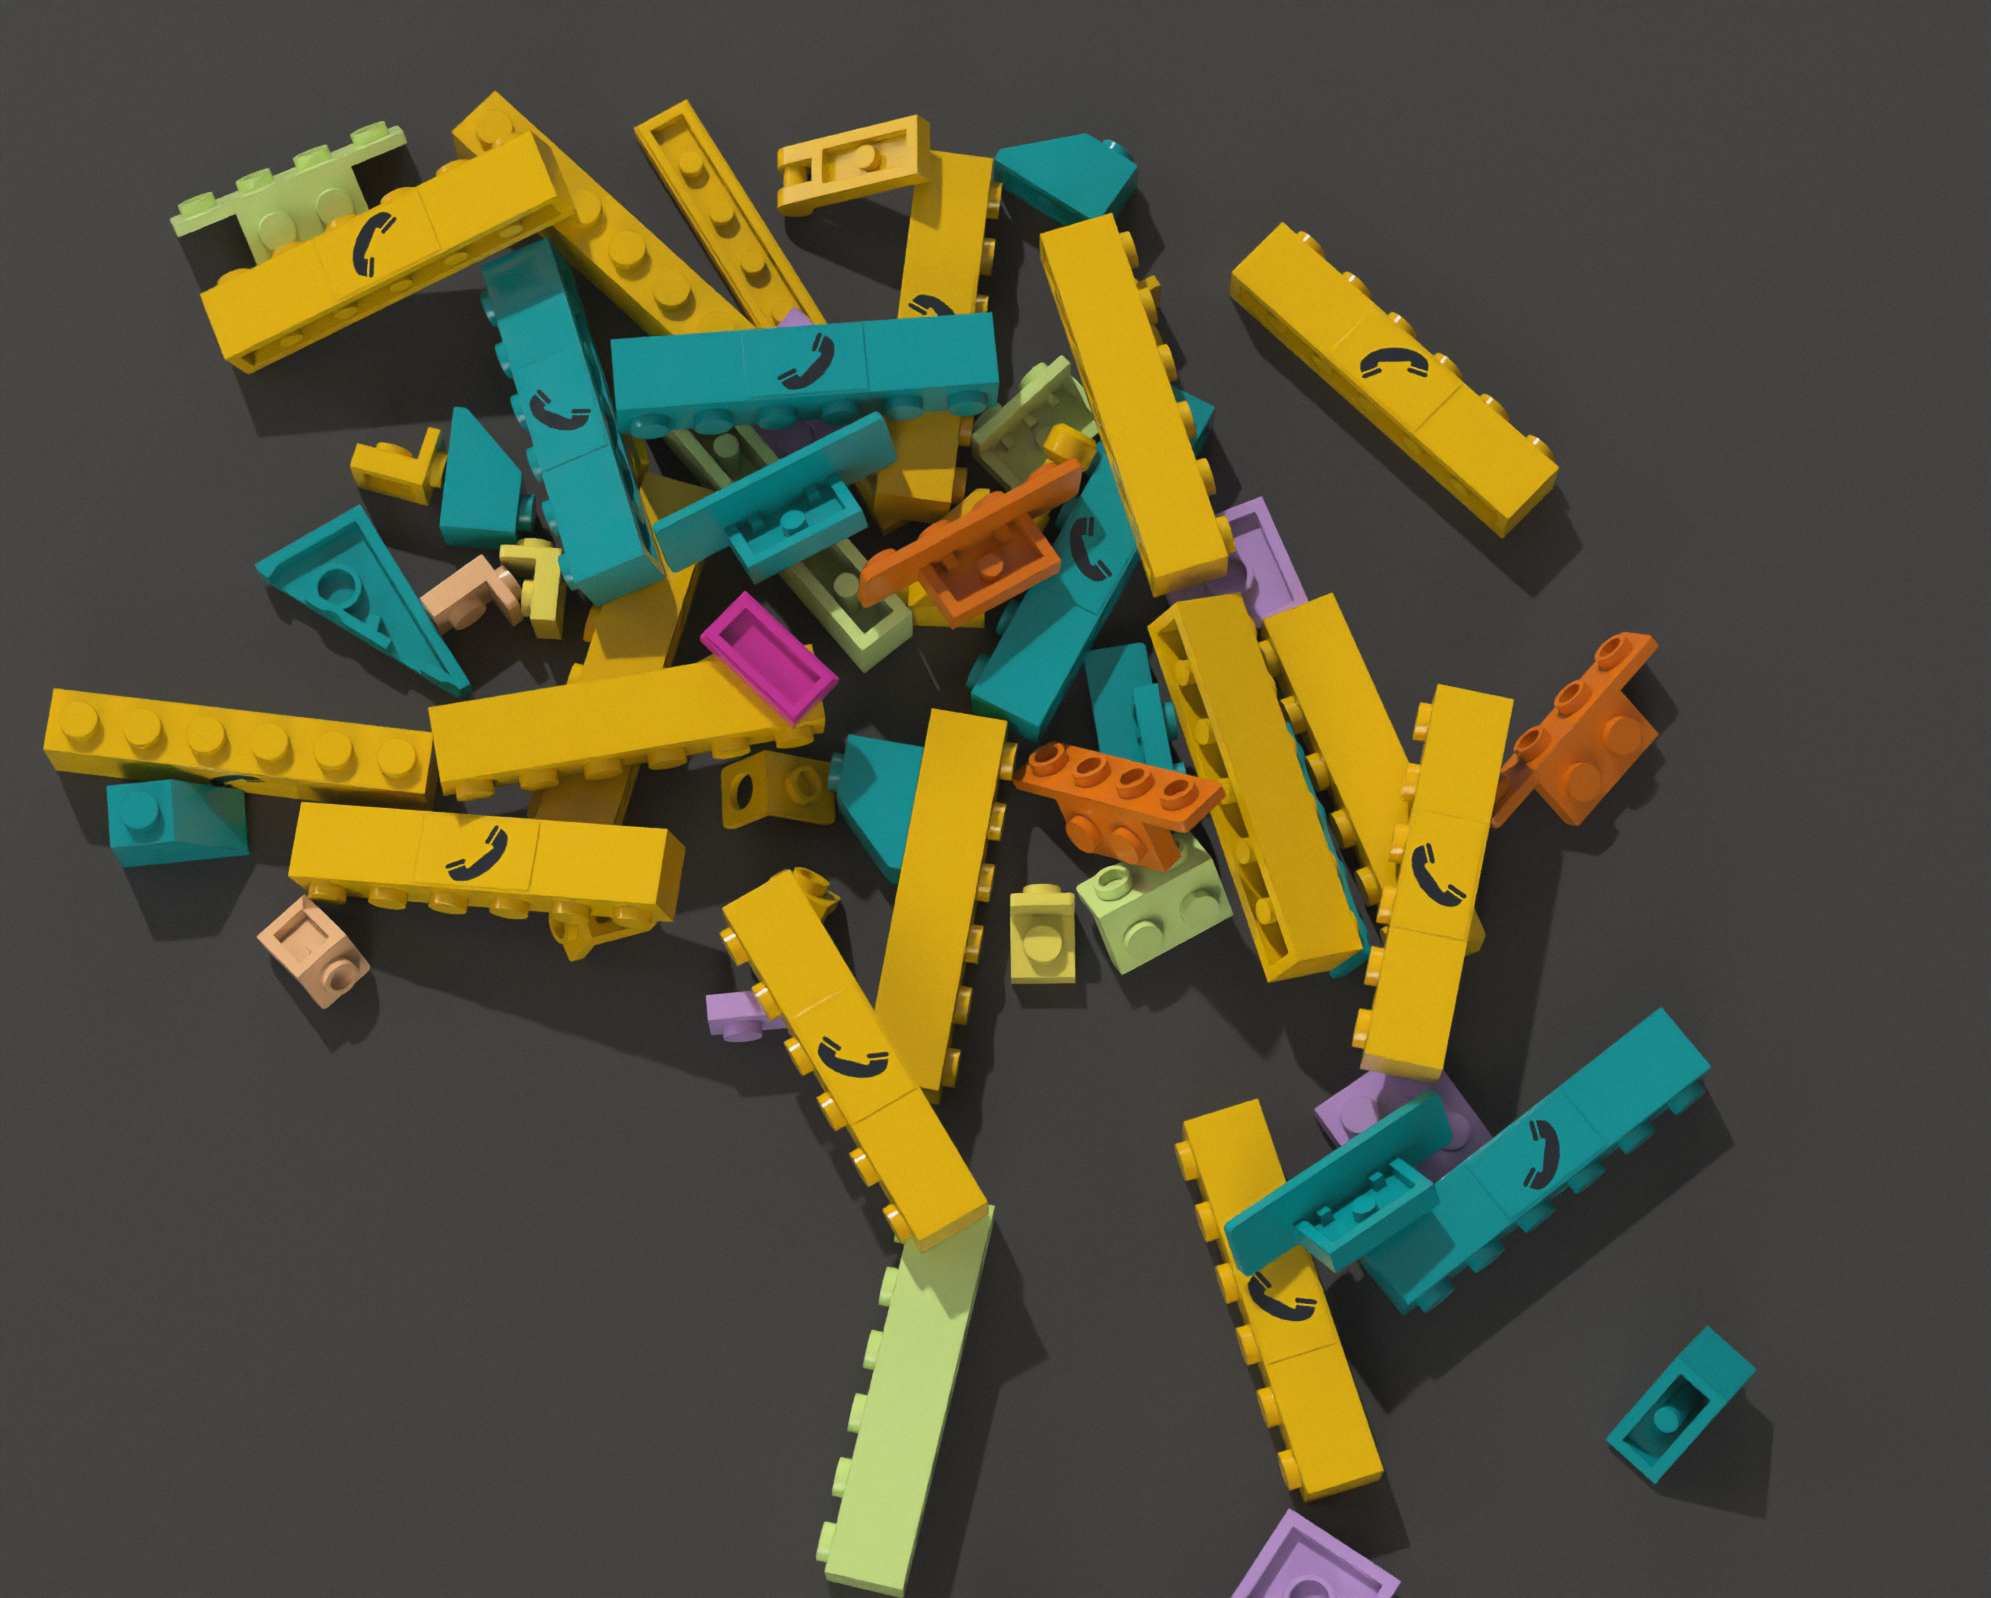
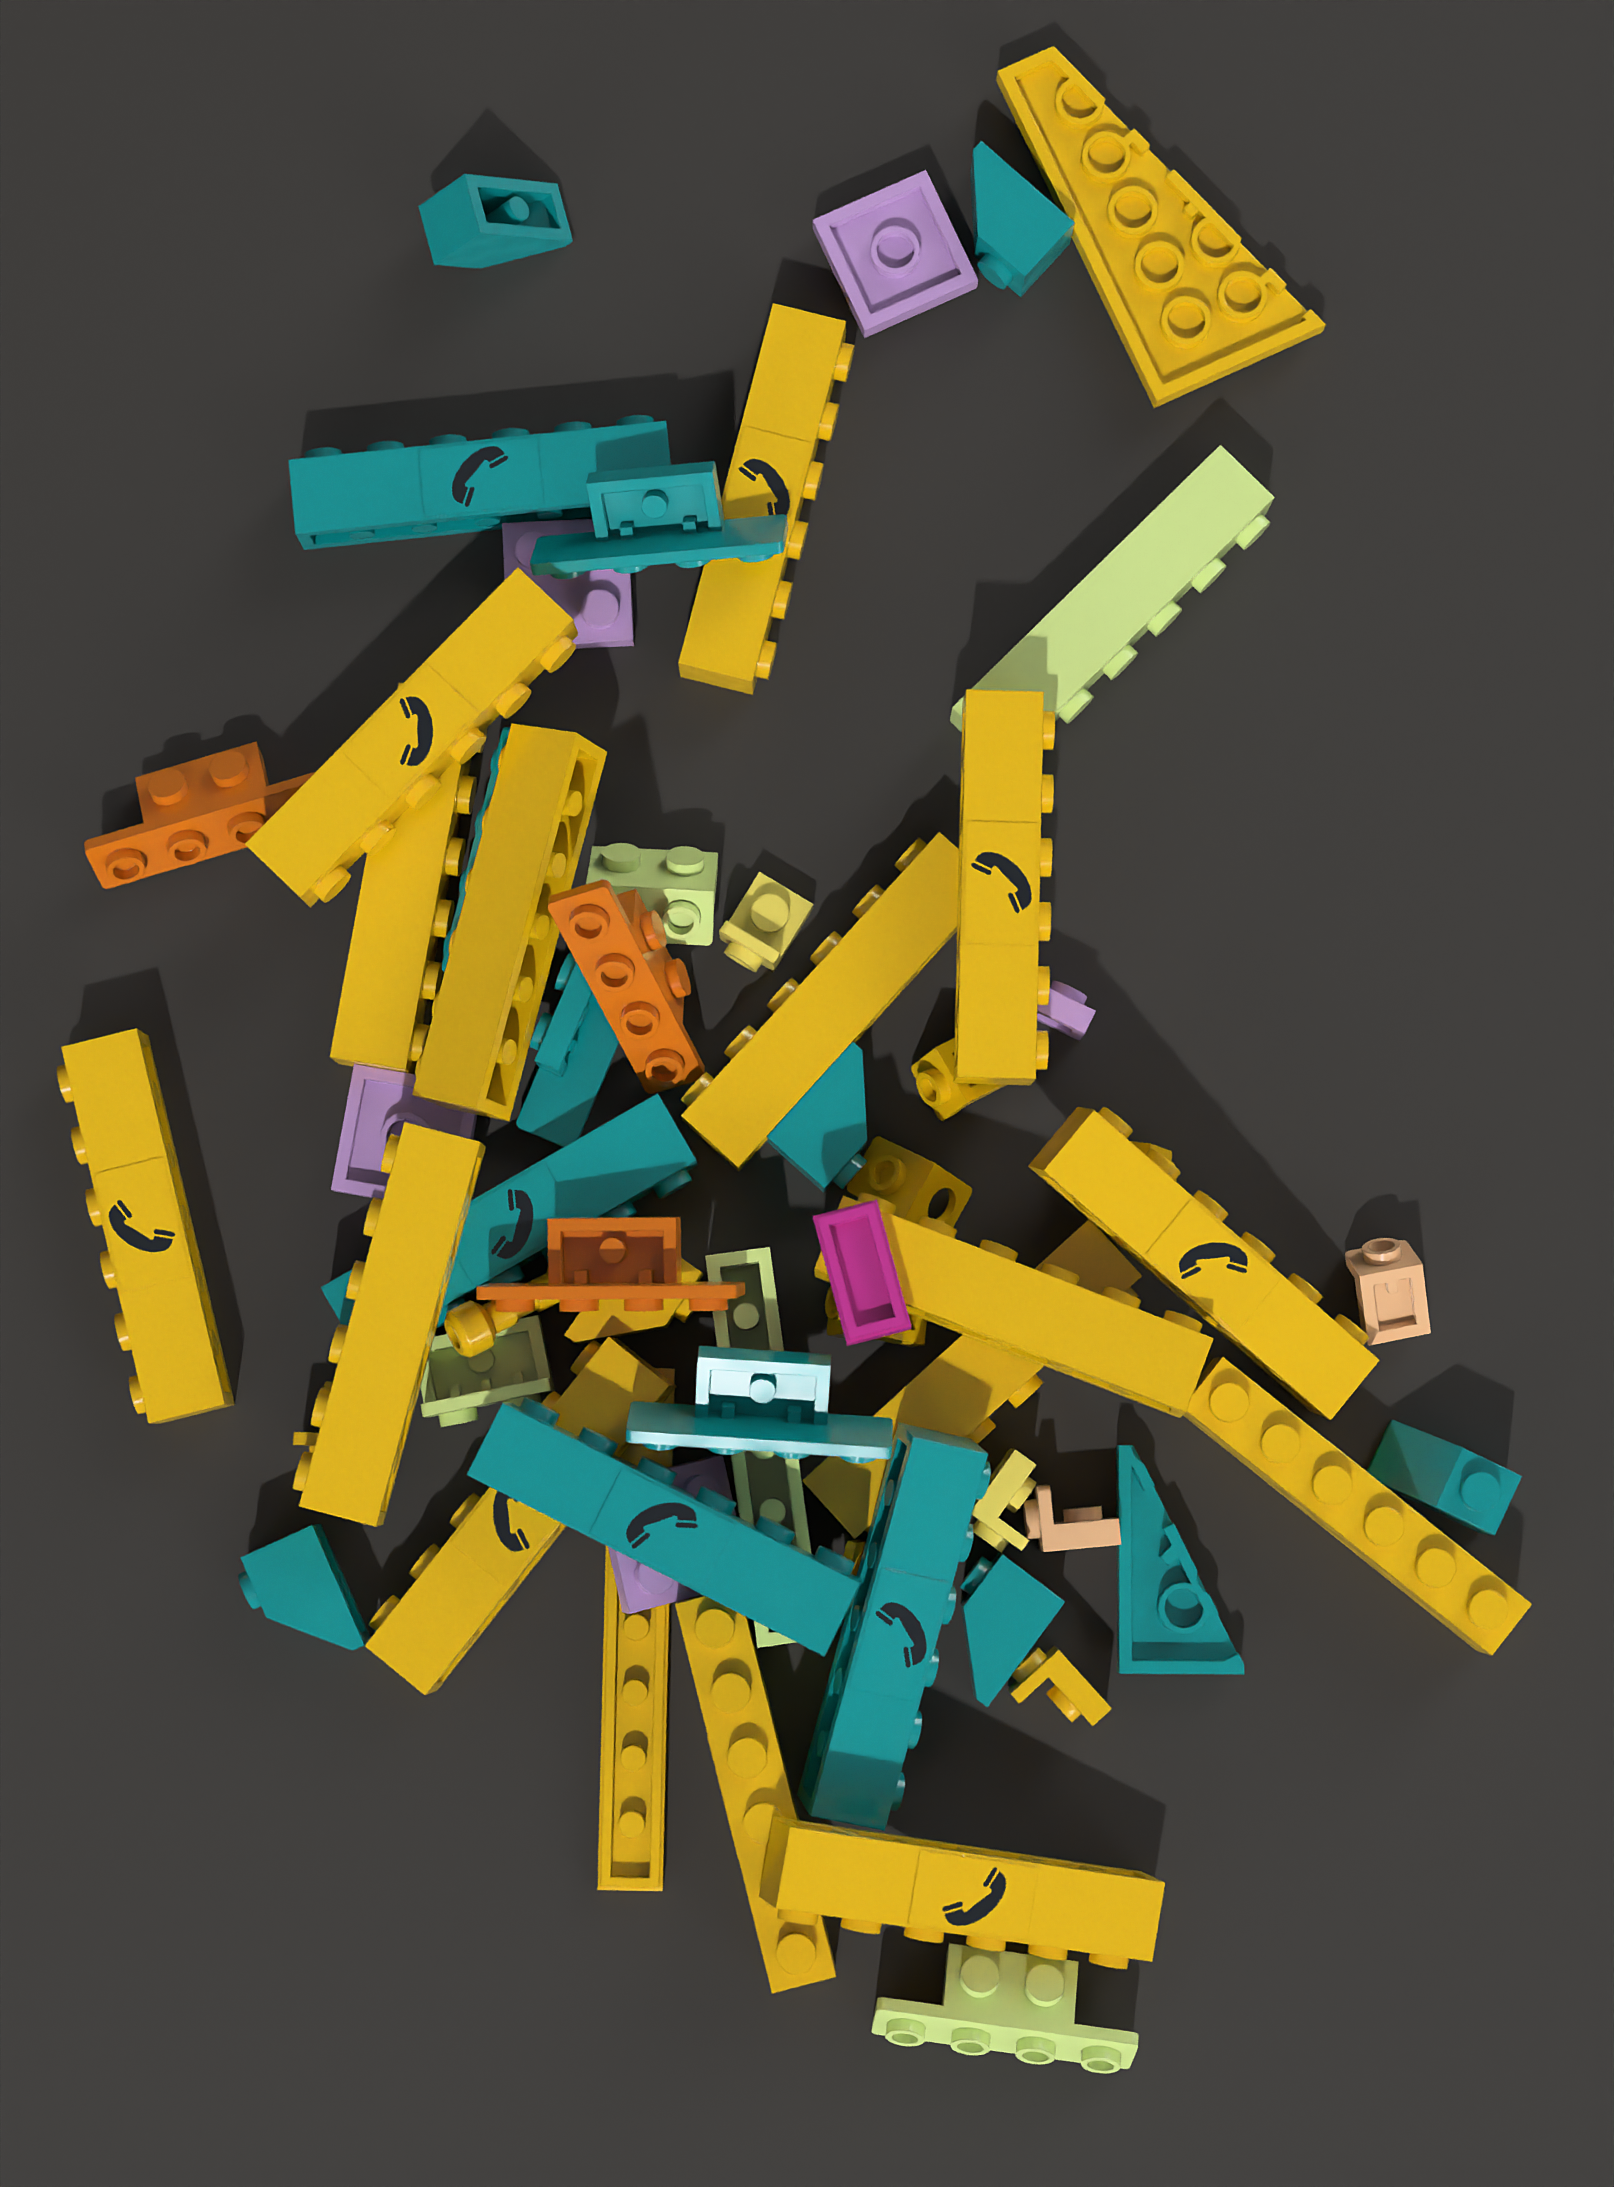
camera: 150 degrees left, 10 degrees up
(853, 165) = (490, 1718): yellow plate -> none

